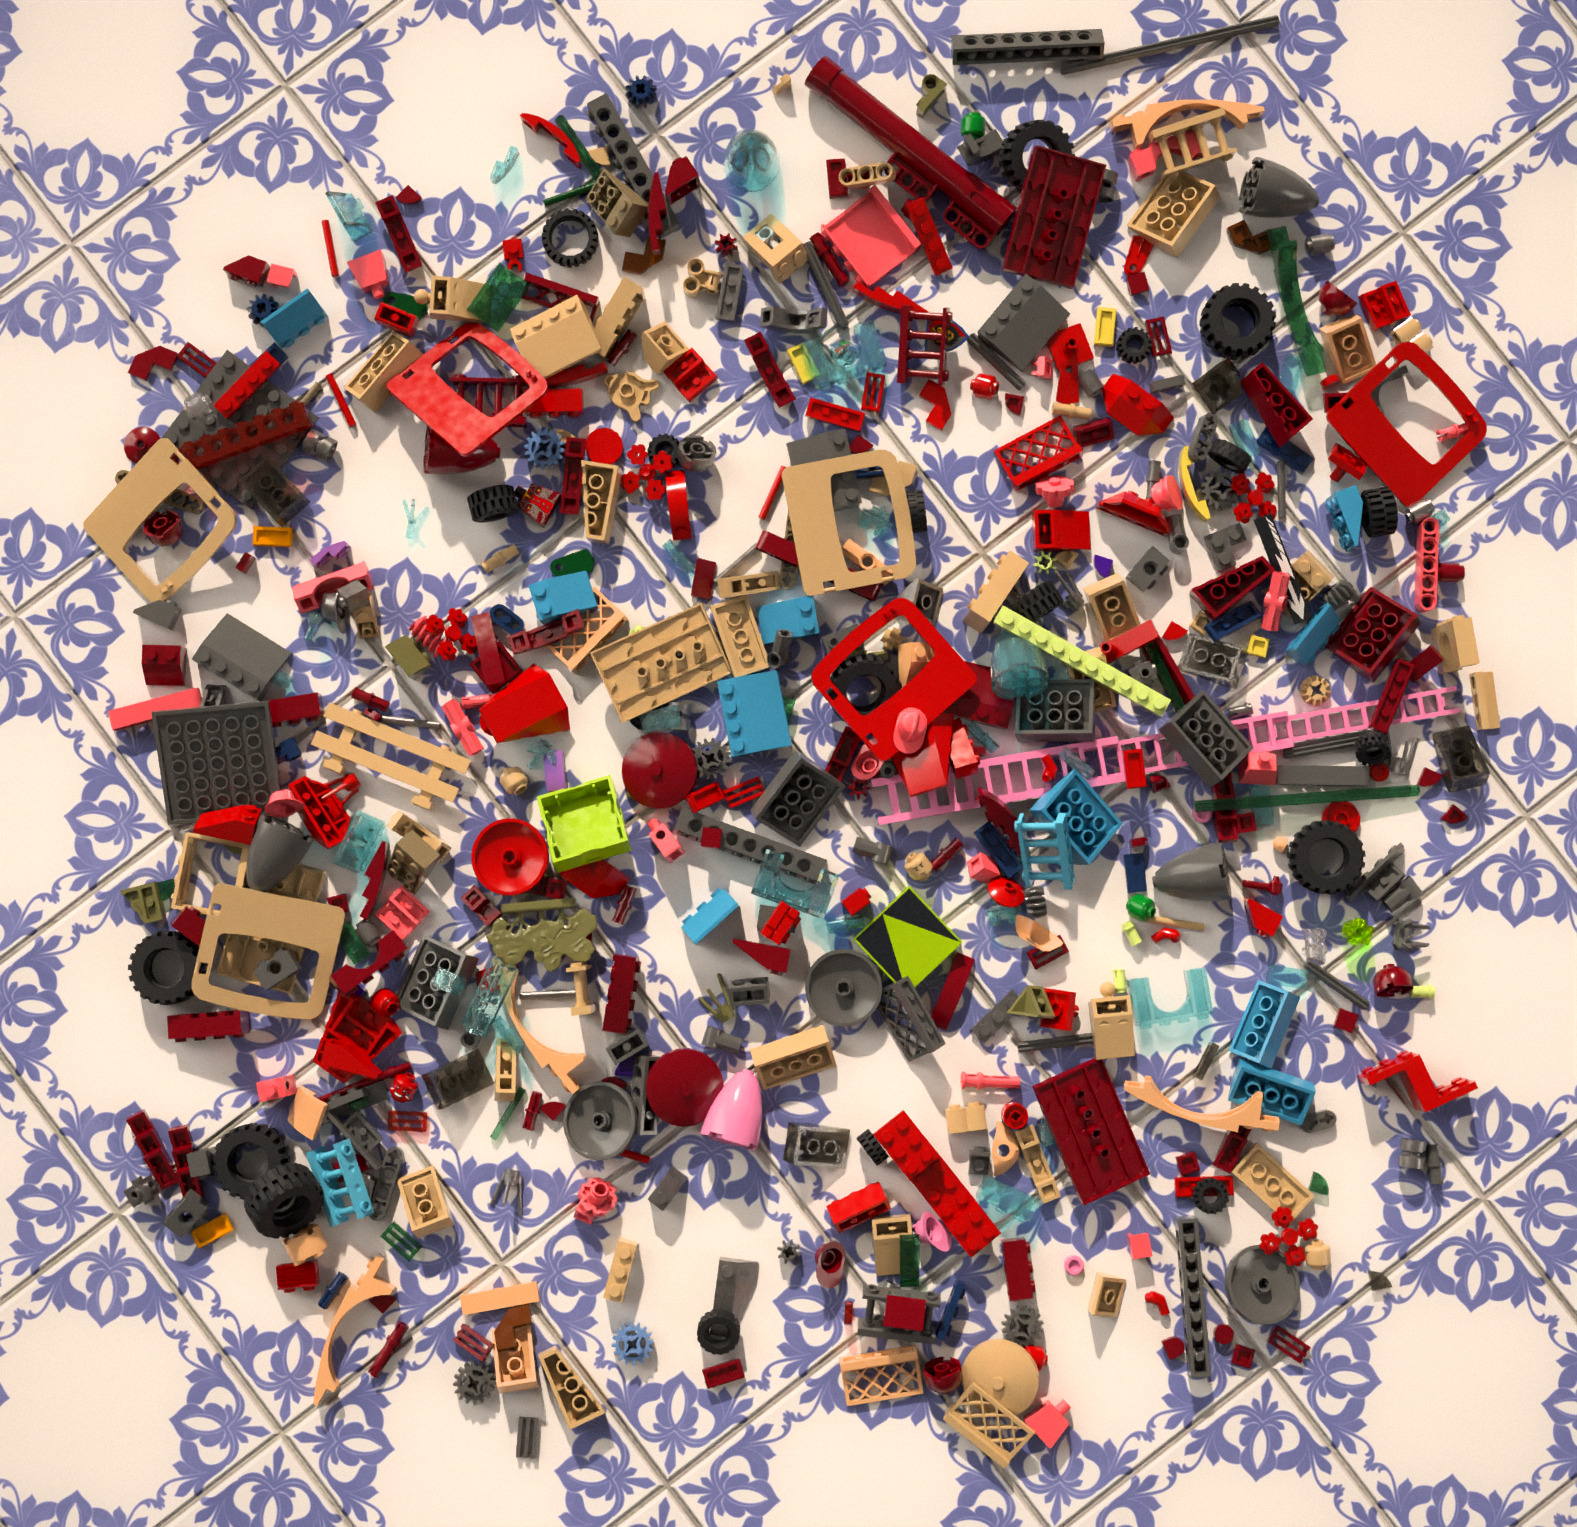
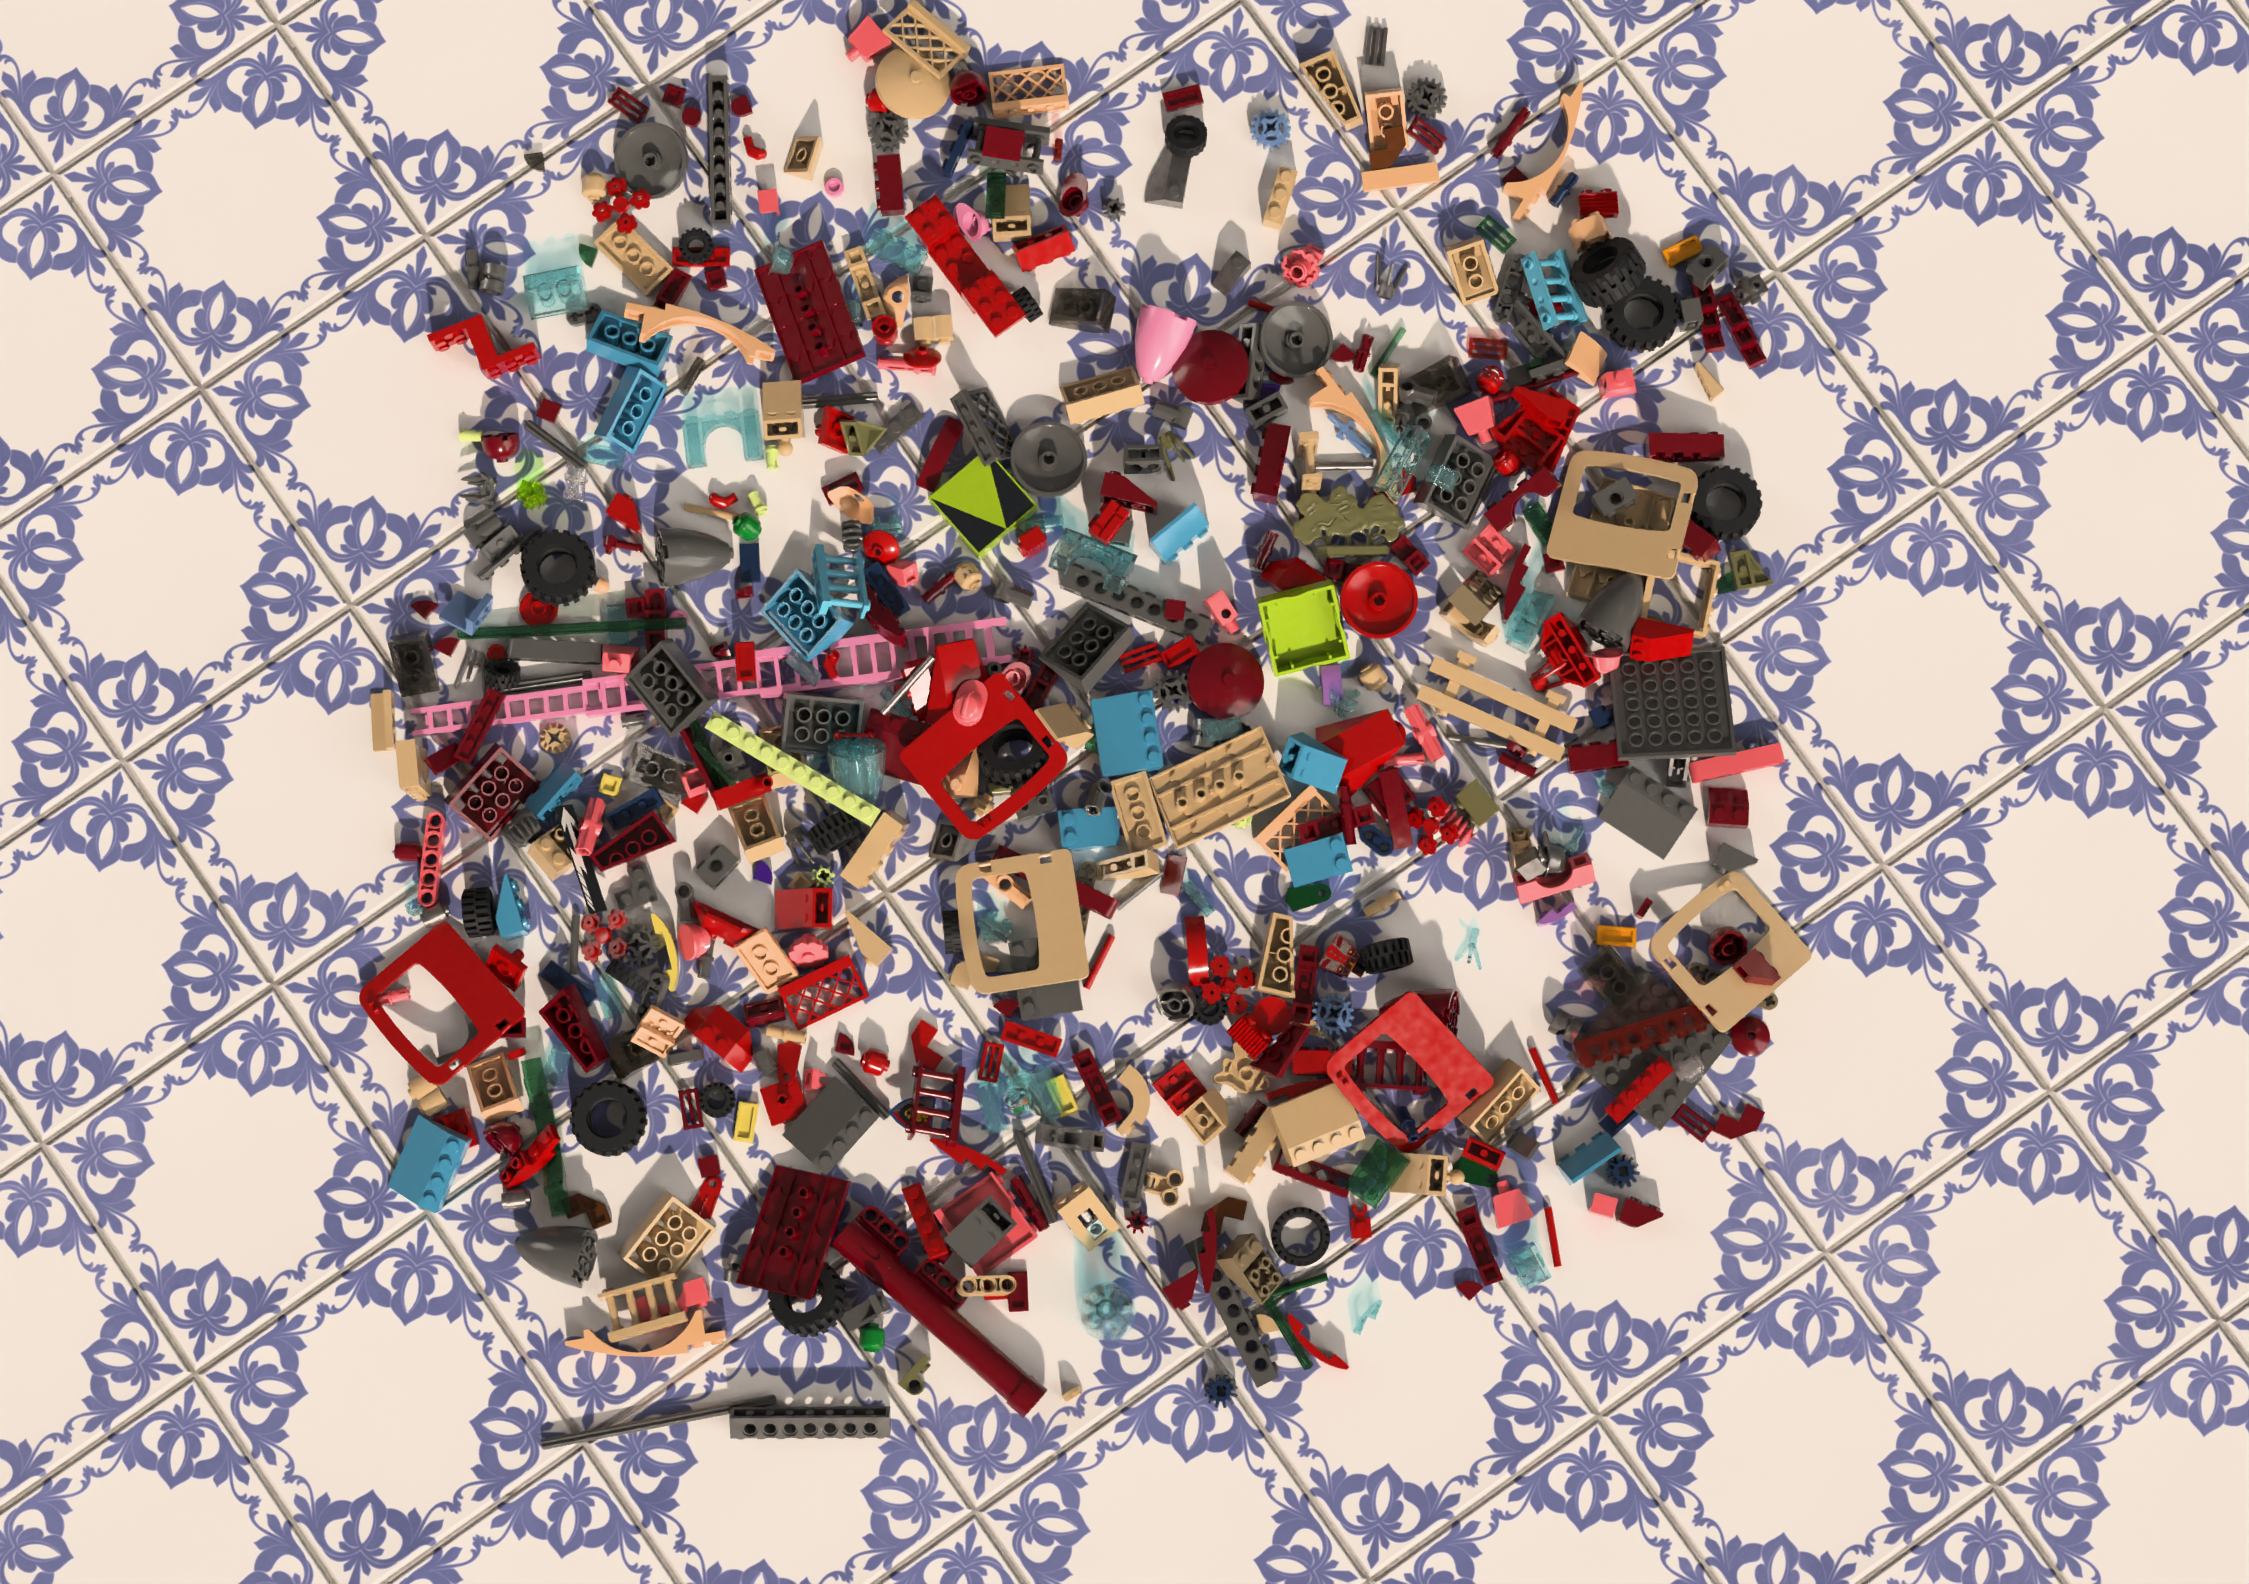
camera: 170 degrees left, 5 degrees down
(135, 503) = (1756, 970): none -> dark red slope
(184, 1092) = (1708, 382): none -> tan slope
(357, 328) = (1523, 1146): none -> dark grey slope
(367, 933) = (1523, 531): flat silver brick -> none
(415, 1046) = (1478, 418): none -> coral torso
(469, 345) = (1408, 1124): none -> dark blue axle
(476, 1068) = (1410, 393): none -> flat silver piece
(491, 1045) = (1402, 417): none -> dark grey pin
(537, 648) = (1346, 815): none -> dark red pin
(541, 1025) = (1352, 436): none -> medium blue sword
(570, 689) = (1312, 763): none -> dark azure slope
(592, 406) = (1280, 1055): none -> dark red wing
(623, 424) = (1250, 1035): none -> red brick
(729, 370) = (1137, 1086): none -> tan arch
(815, 717) = (1065, 724): none -> tan slope
(875, 225) = (980, 1231): none -> dark grey slope
(972, 748) = (908, 684): none -> flat silver bar
(975, 1088) = (922, 357): none -> red dish
(995, 499) = (870, 945): none -> tan slope
(1039, 698) = (837, 735): none -> red hinge
(1095, 477) = (766, 960): none -> light nougat tile
(1123, 1184) = (781, 259): none -> clear light blue piece
(1158, 666) = (714, 763): none -> clear green bar
(1178, 649) = (693, 782): none -> coral panel
(1195, 406) = (657, 1031): none -> light nougat slope
(1309, 278) = (530, 1161): none -> red slope
(1349, 1141) = (555, 292): none -> clear light blue slope
(1406, 272) = (429, 1163): none -> dark azure slope
(1413, 810) = (466, 612): none -> medium blue bracket

